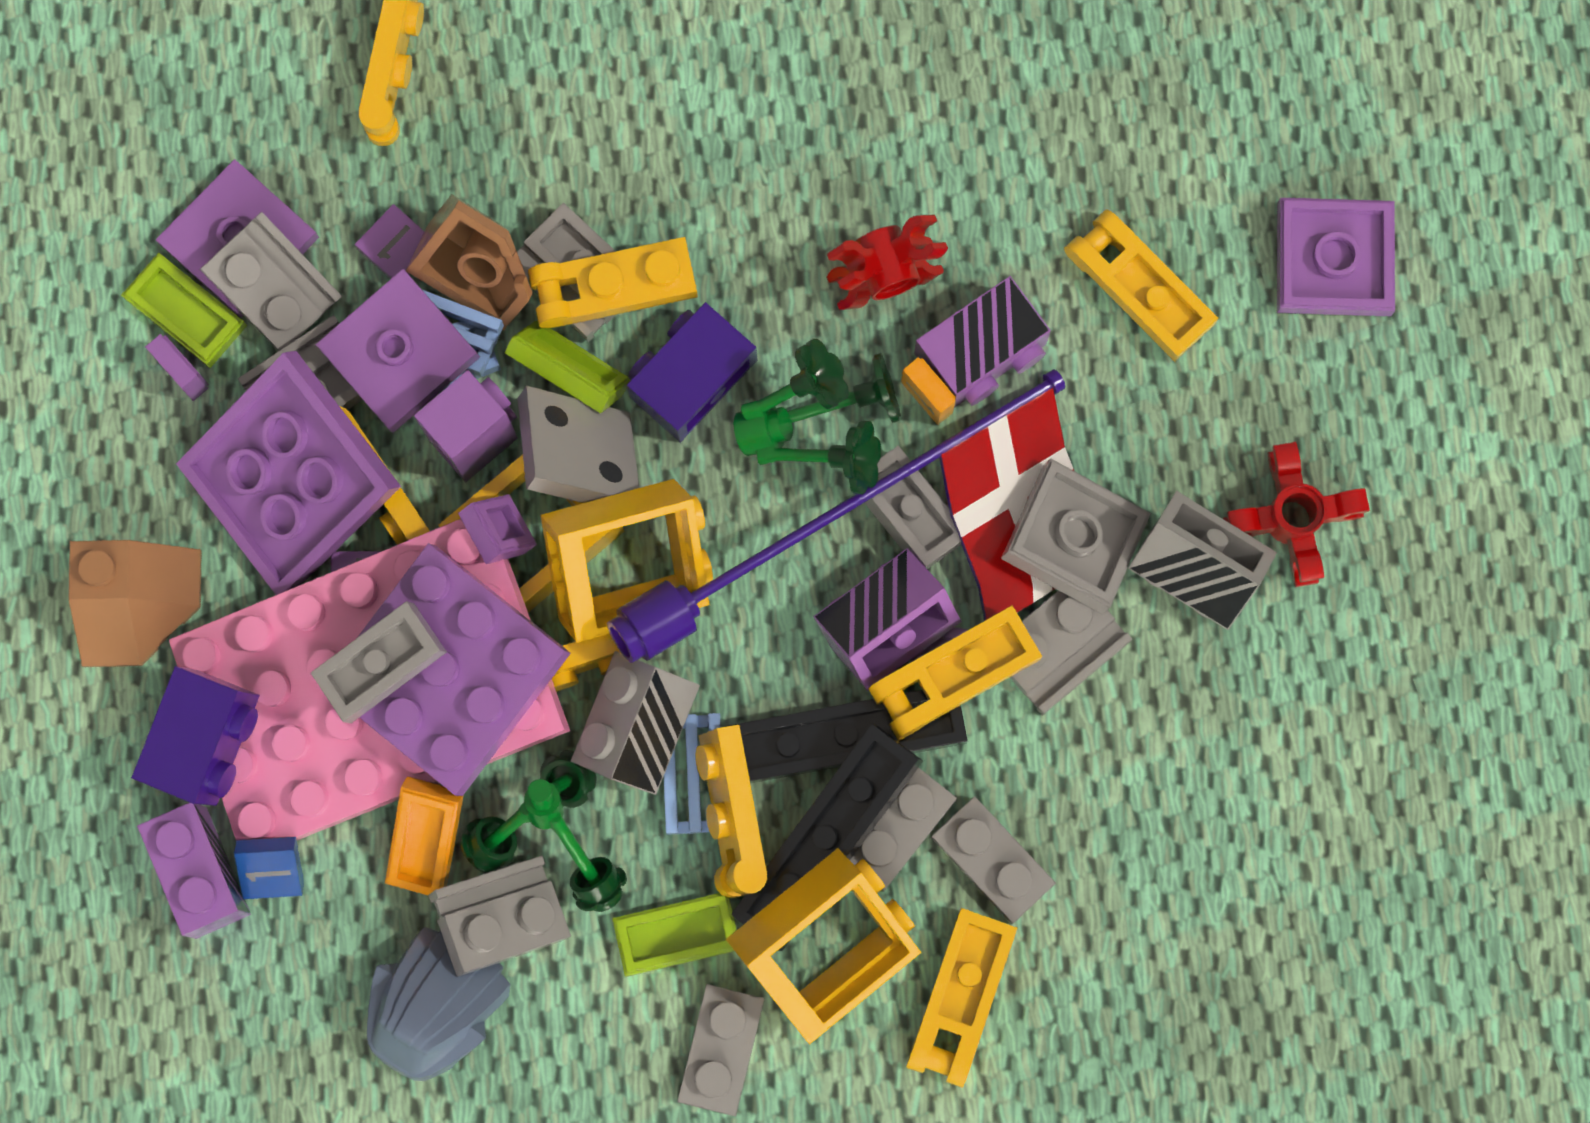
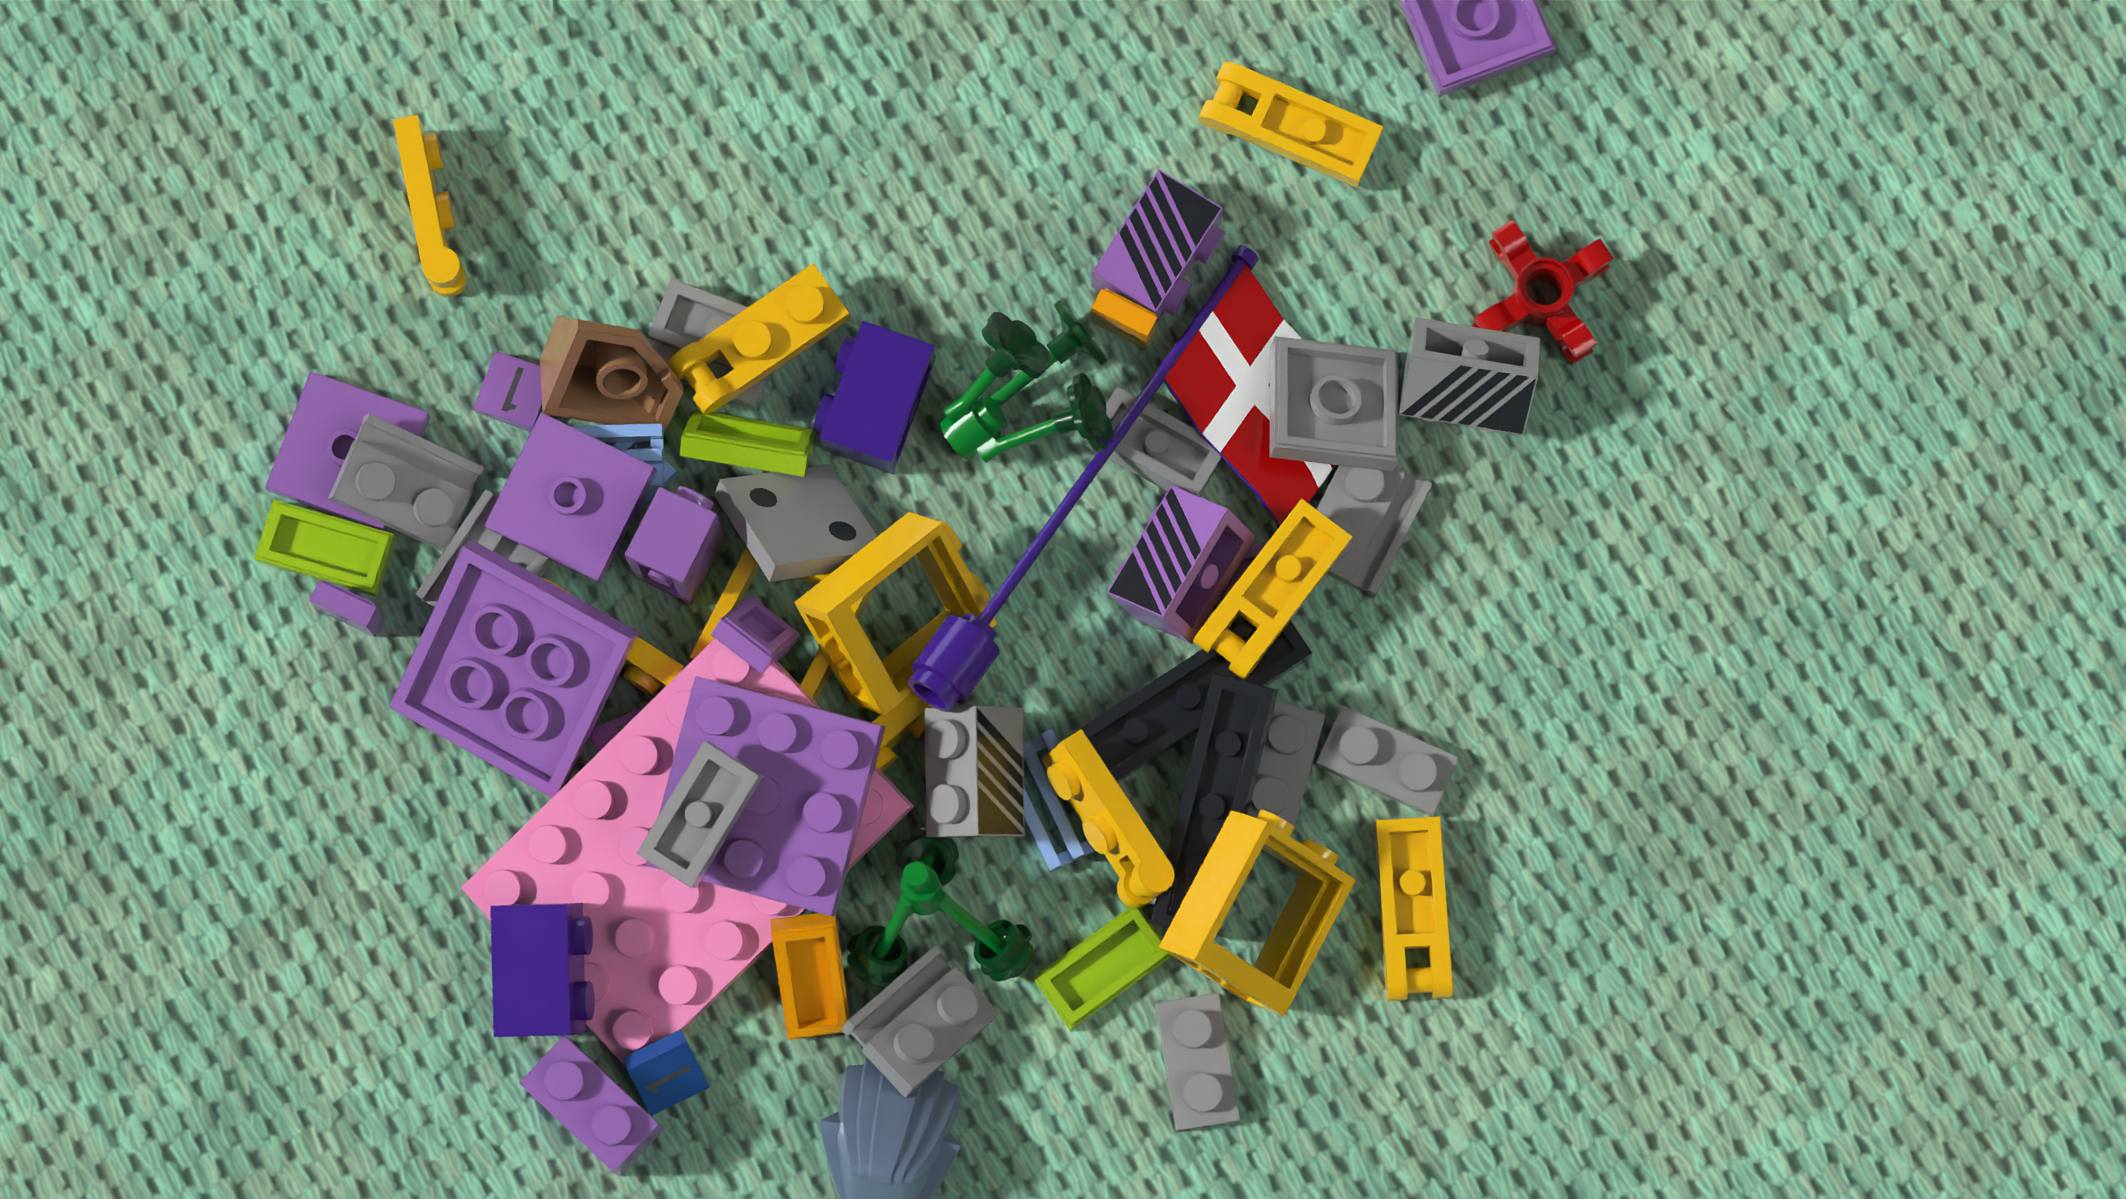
camera: 25 degrees left, 0 degrees up
(130, 598) = (403, 862): medium nougat slope -> none
(886, 262) = (1028, 206): red pin -> none

